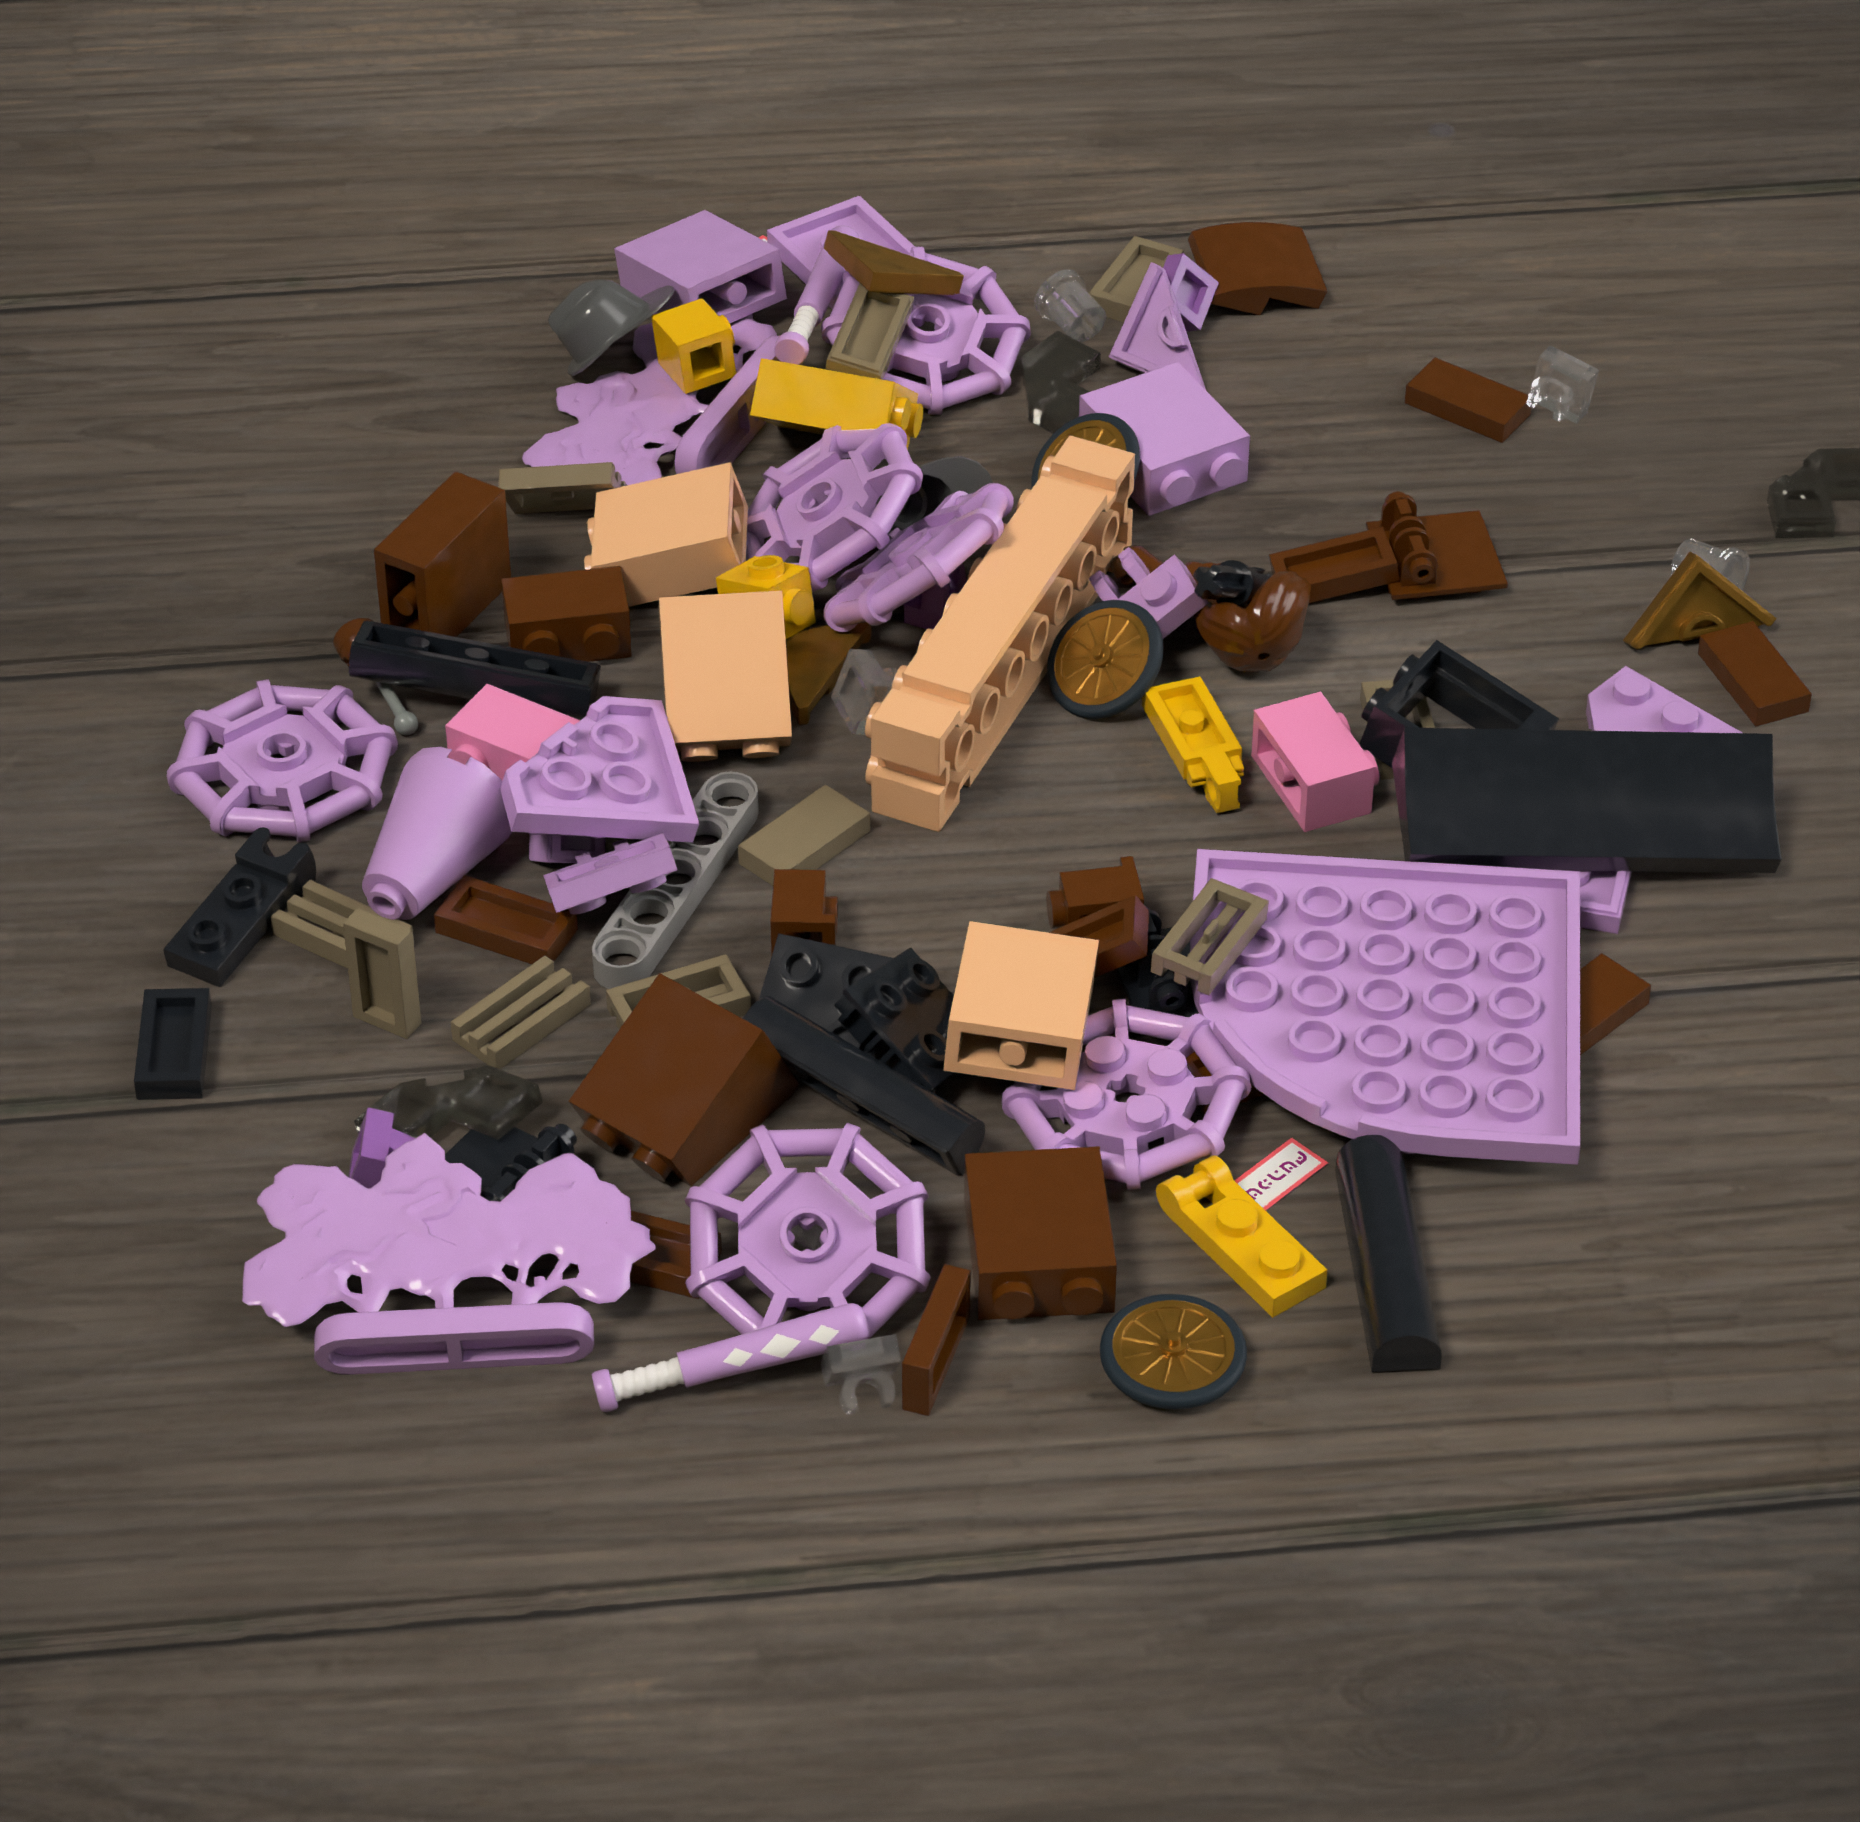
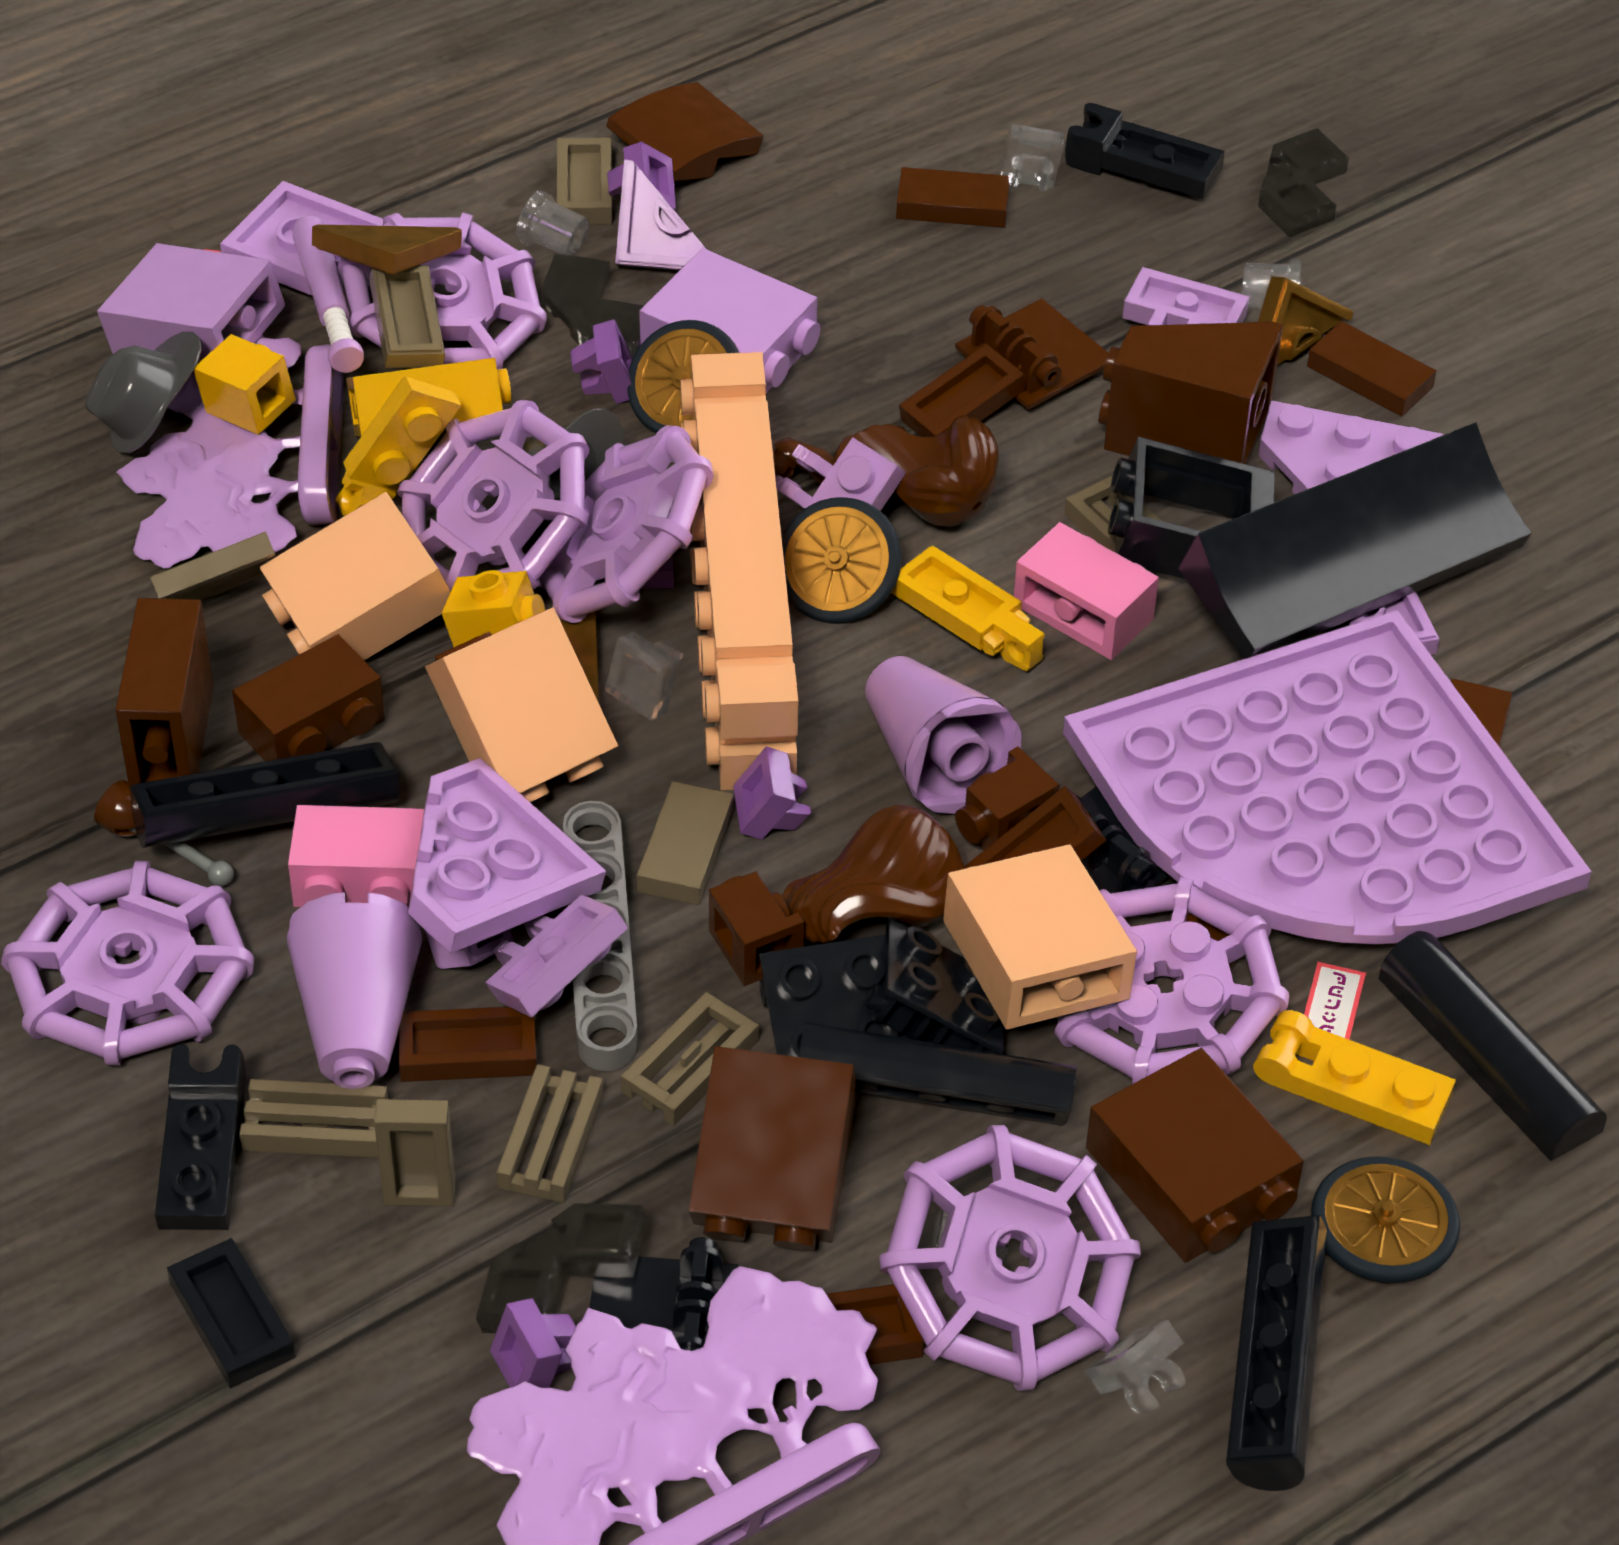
camera: 30 degrees left, 5 degrees up
(740, 1354) = (1023, 1403): lavender piece -> none
(777, 426) = (395, 442): none -> yellow hinge
(898, 825) = (768, 795): none -> medium lavender tile
(934, 912) = (887, 870): none -> reddish brown piece
(936, 1340) = (1184, 1303): reddish brown tile -> none
(988, 1408) = (1277, 1353): none -> black brick
(1029, 428) = (609, 360): none -> medium lavender tile
(1075, 821) = (939, 730): none -> lavender cone
(1208, 975) = (1148, 835): dark tan tile -> none
(1229, 582) = (914, 446): black axle -> none
(1541, 623) = (1191, 387): none -> reddish brown slope
(1605, 562) = (1172, 300): none -> lavender hinge
(1678, 416) = (1141, 153): none -> black plate

